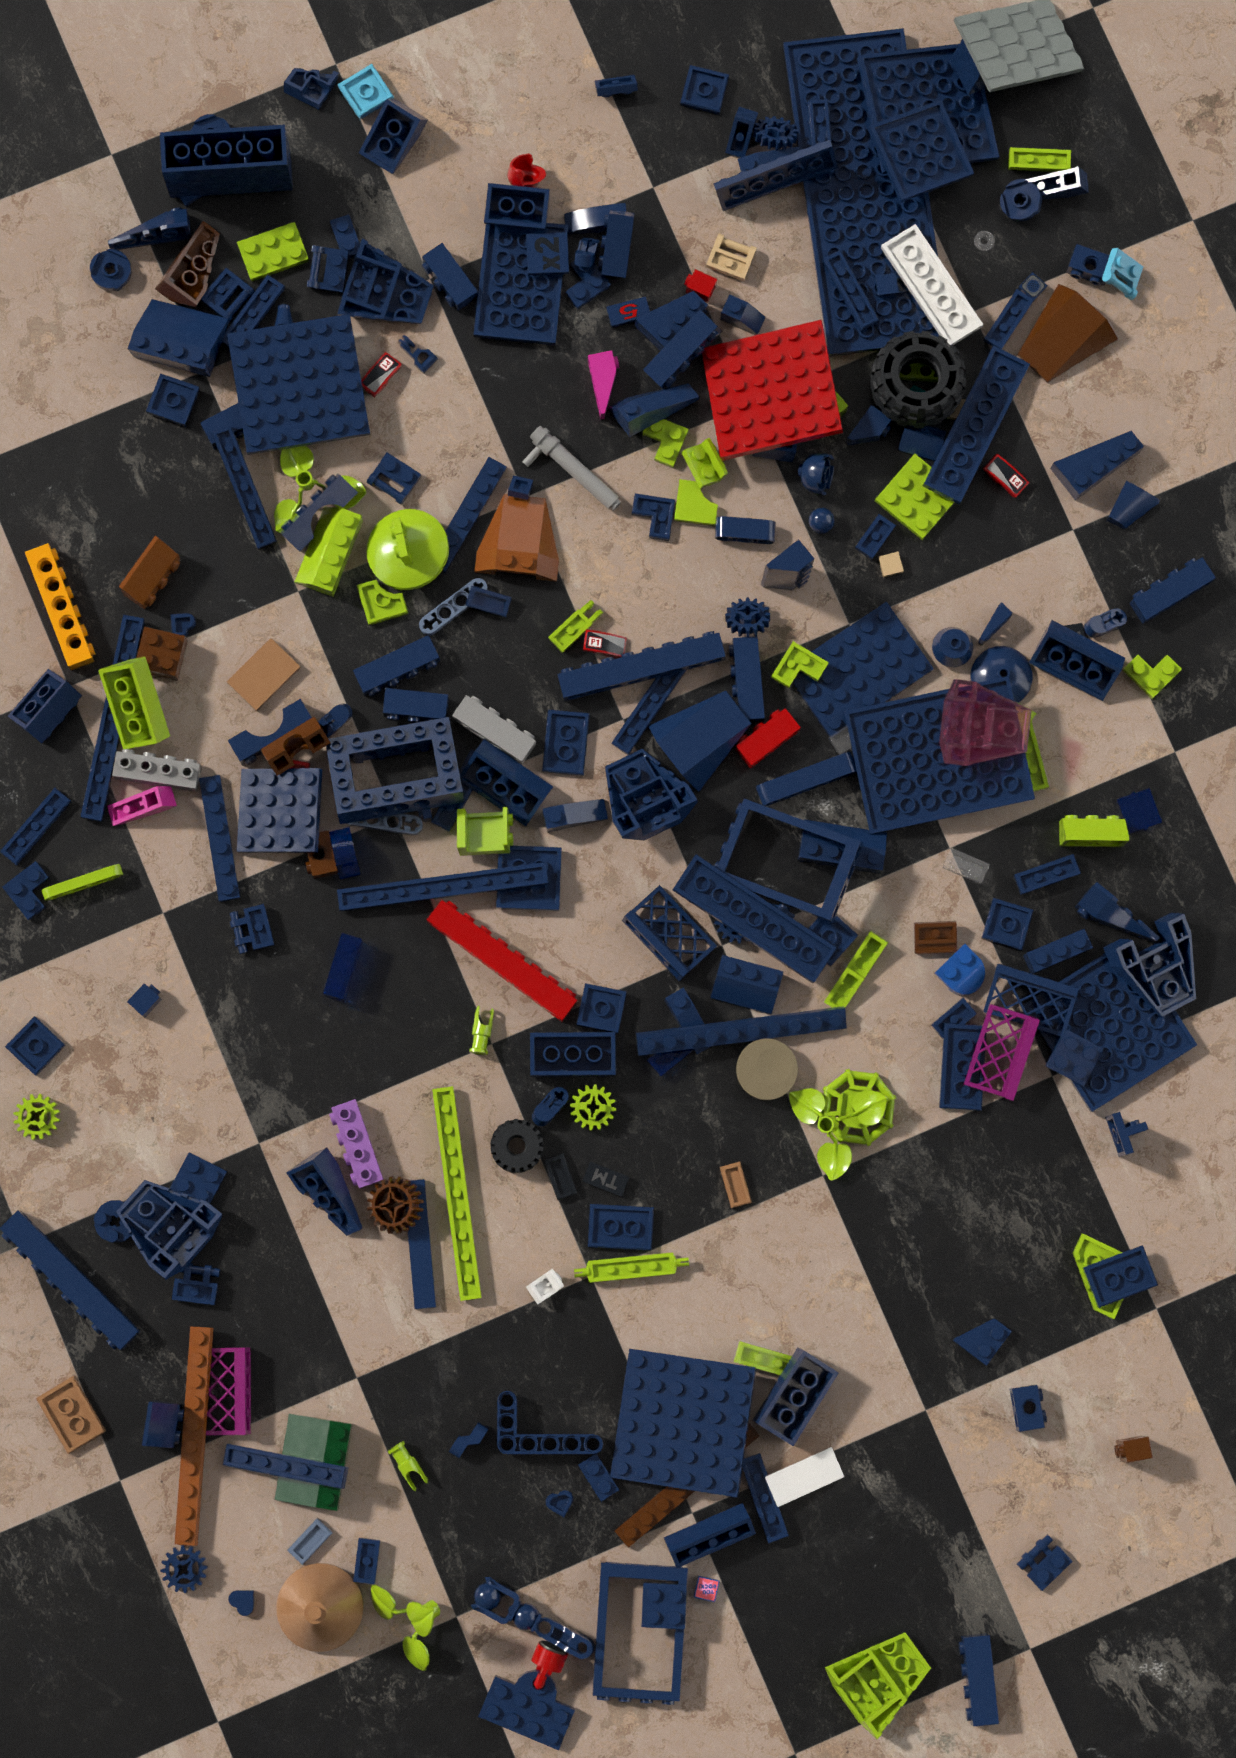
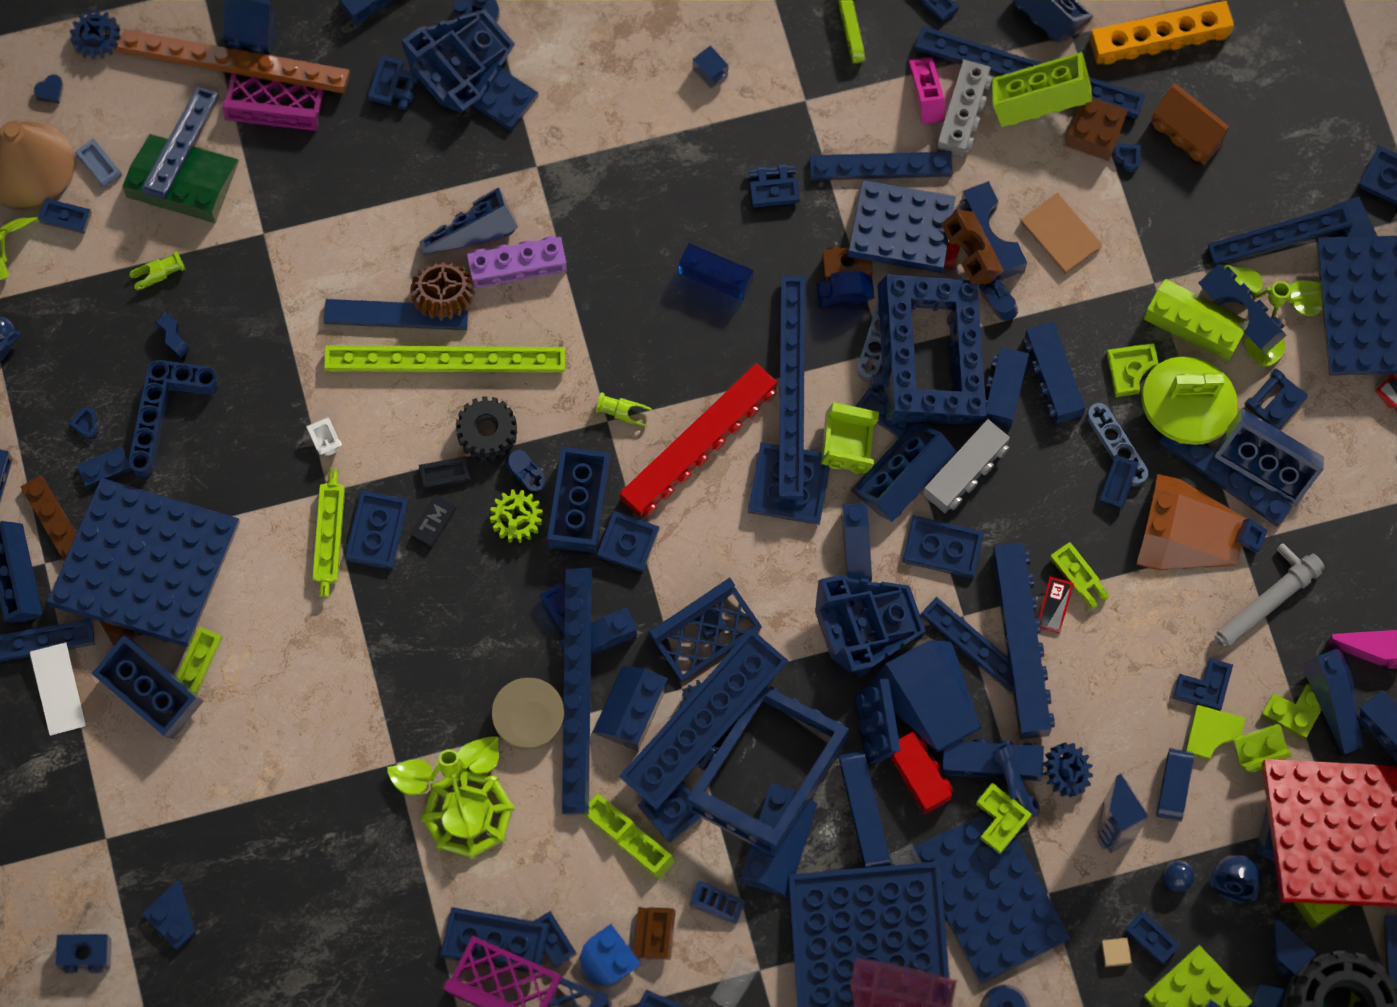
camera: 105 degrees right, 10 degrees down
(450, 477) = (1269, 456): none -> dark blue slope
(732, 776) = (877, 722): none -> dark blue plate
(735, 1184) = (402, 662): medium nougat tile -> none
(750, 667) = (1004, 756): none -> dark blue plant
(895, 905) = (712, 890): none -> dark blue slope

